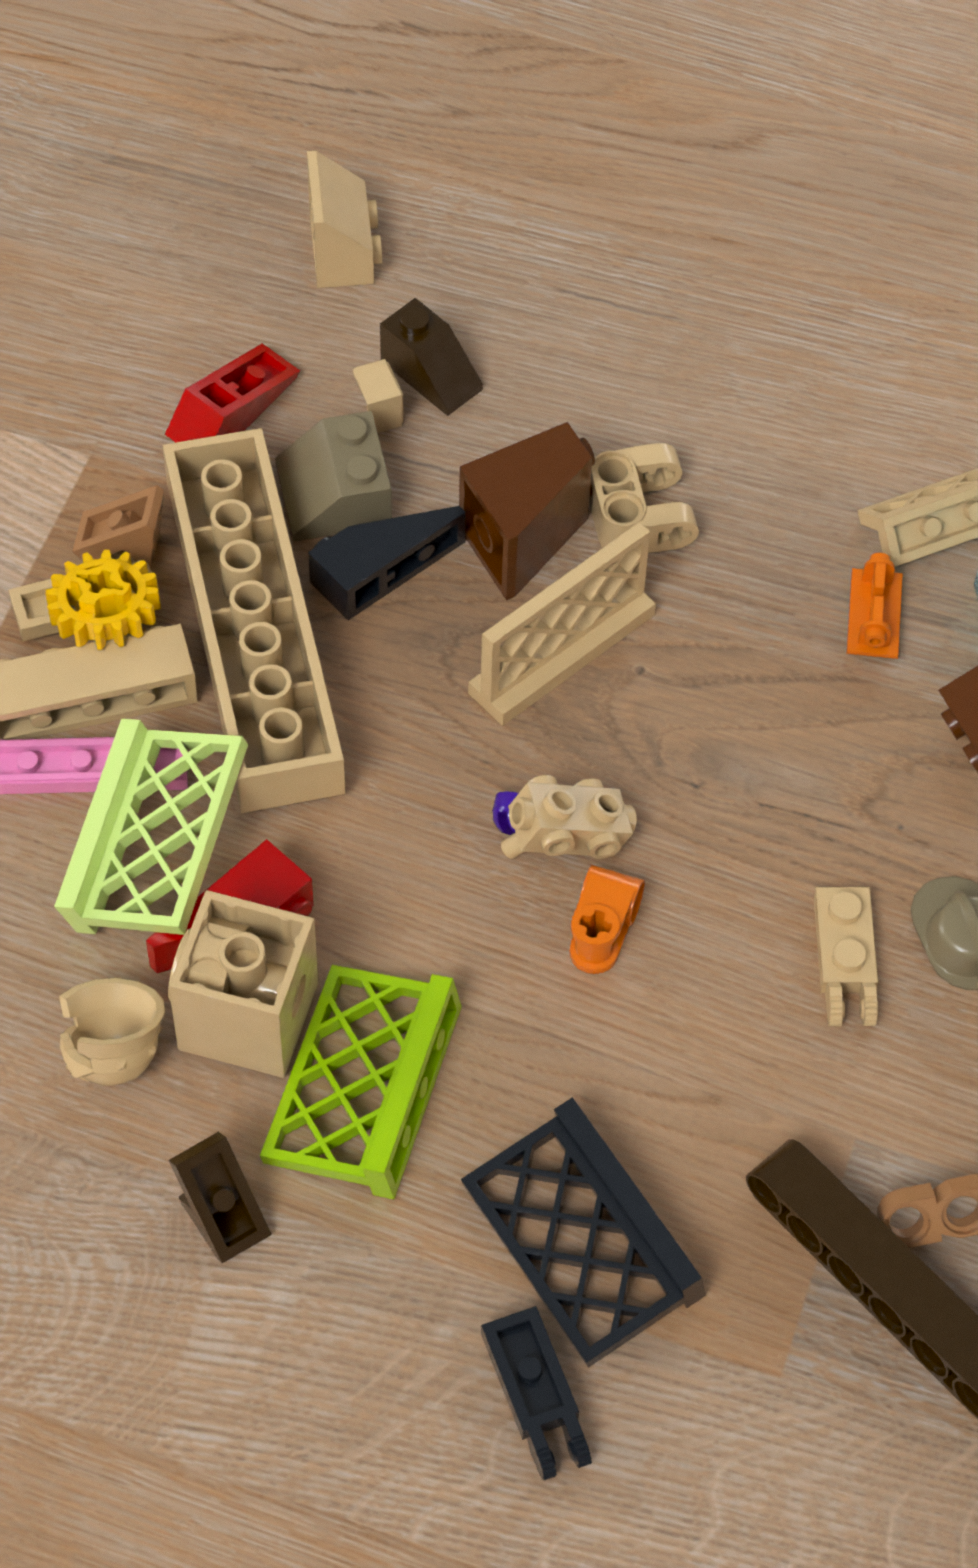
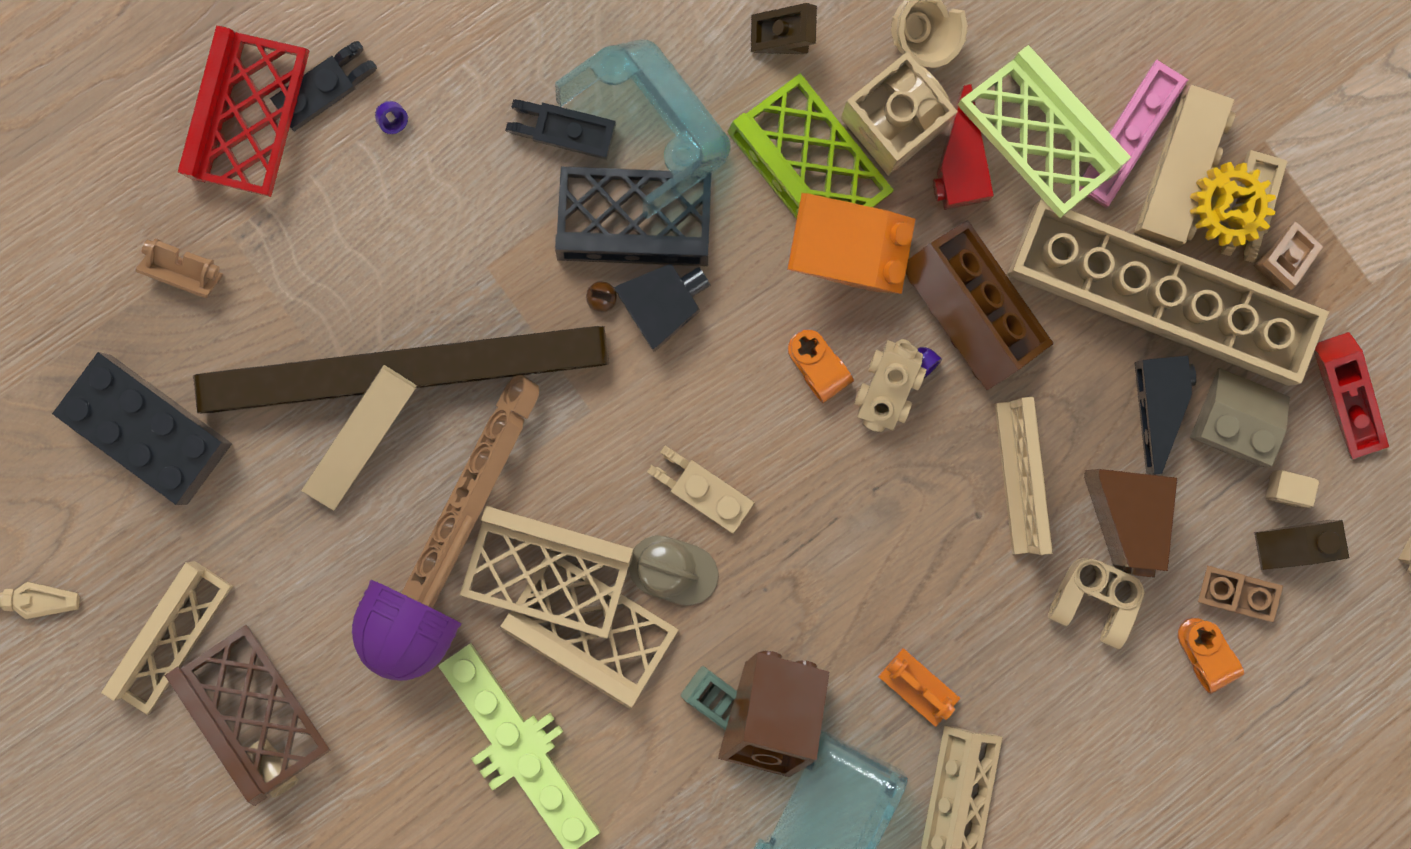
camera: 125 degrees right, 30 degrees up
(392, 1336) = (699, 139): none -> clear light blue windscreen
(406, 795) = (977, 305): none -> reddish brown slope
(438, 939) = (851, 244): none -> orange slope
(524, 387) = (1240, 594): none -> medium nougat slope
(612, 378) = (1212, 659): none -> orange piece
(665, 1128) = (662, 301): none -> black torso
(700, 1213) = (601, 305): none -> reddish brown hinge

